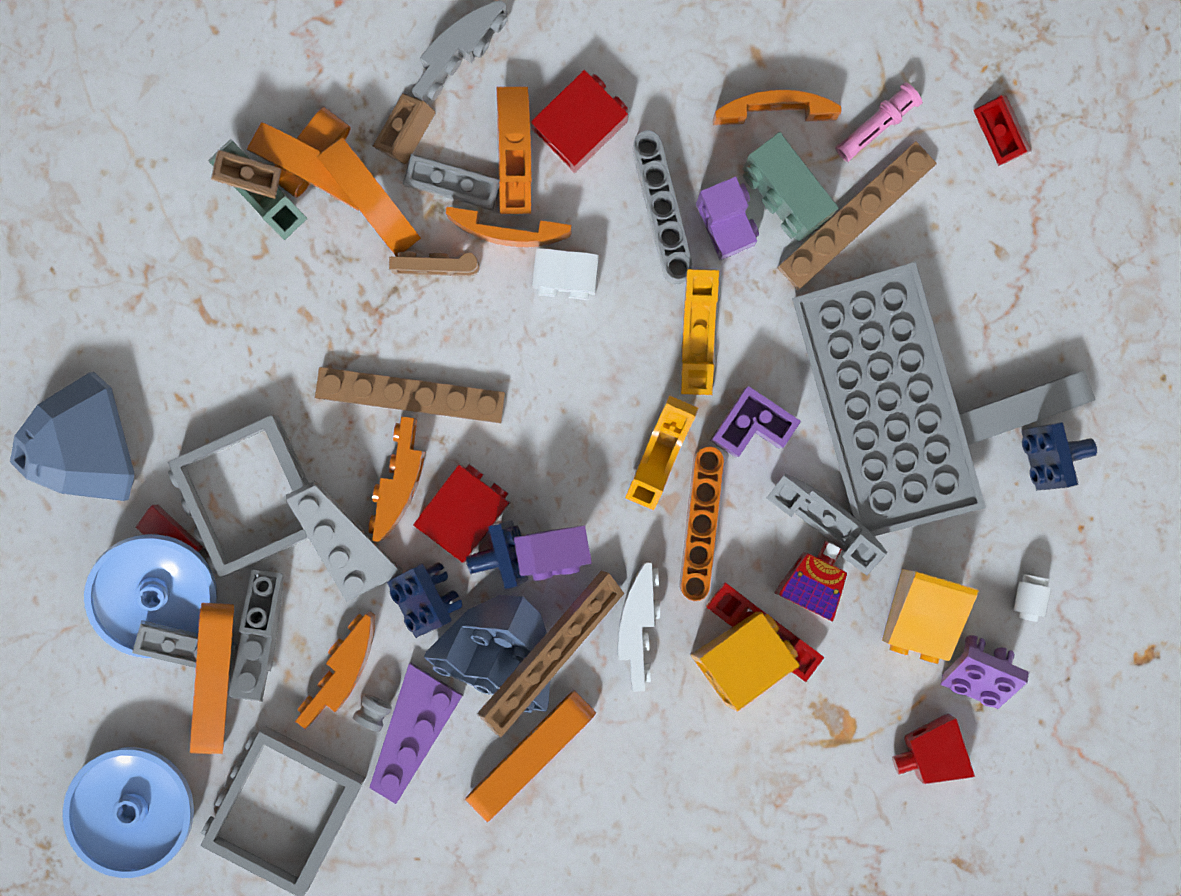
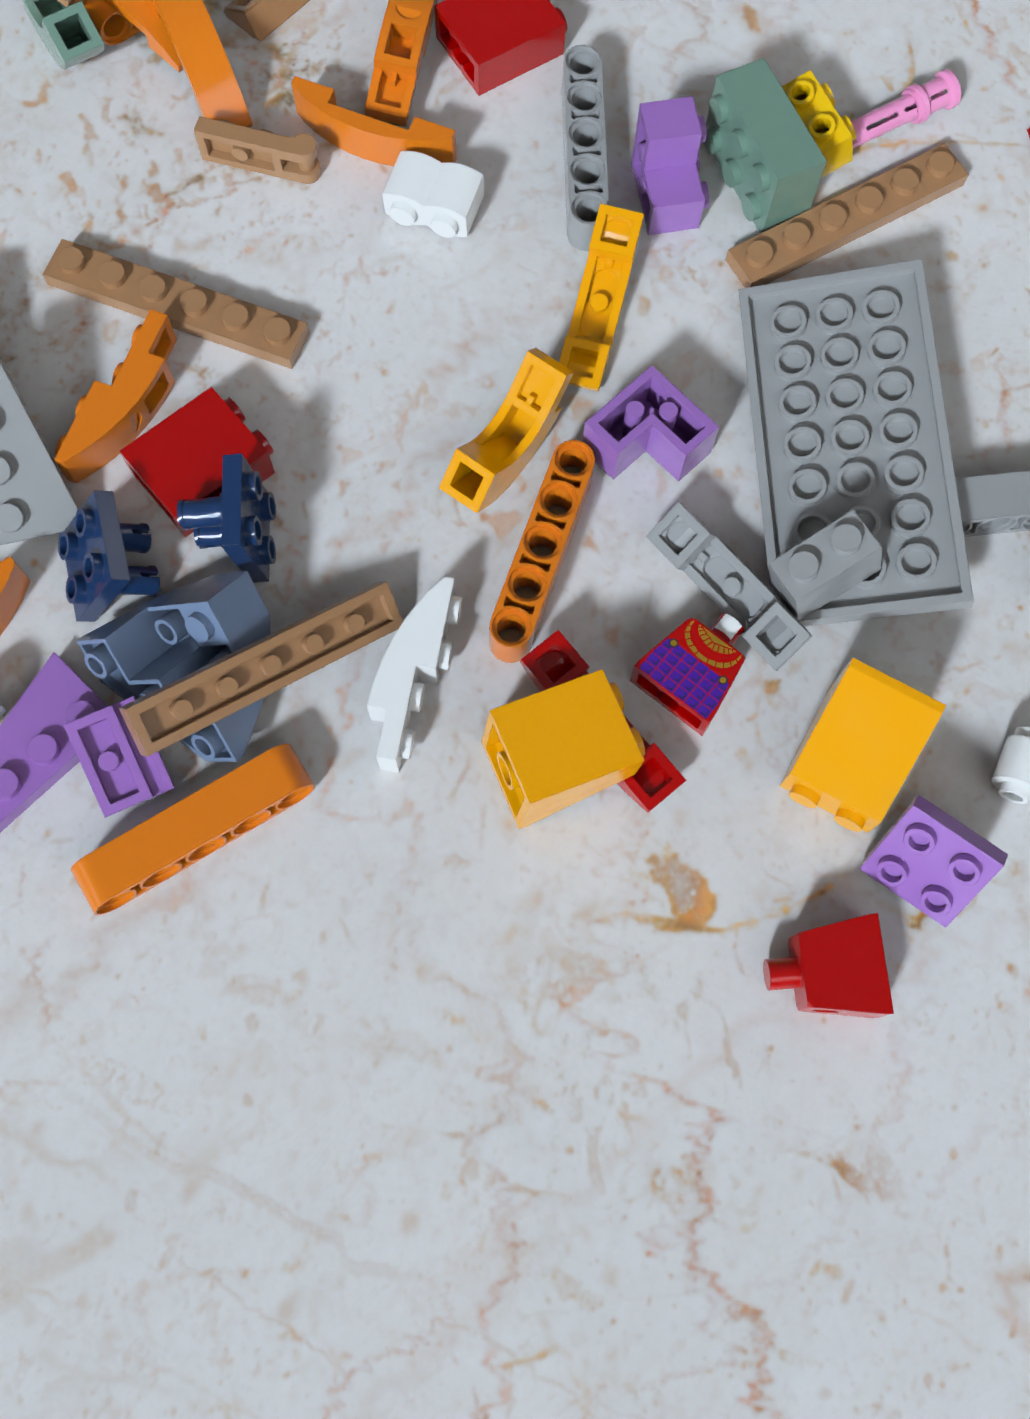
camera: 10 degrees right, 15 degrees down
(451, 182) = (292, 56): light grey tile -> none
(466, 726) = (113, 762): none -> medium lavender plate
(553, 552) = (308, 517): medium lavender brick -> none
(816, 107) = (715, 54): orange slope -> none
(821, 155) = (817, 110): none -> yellow brick
(887, 505) = (826, 565): none -> light grey brick

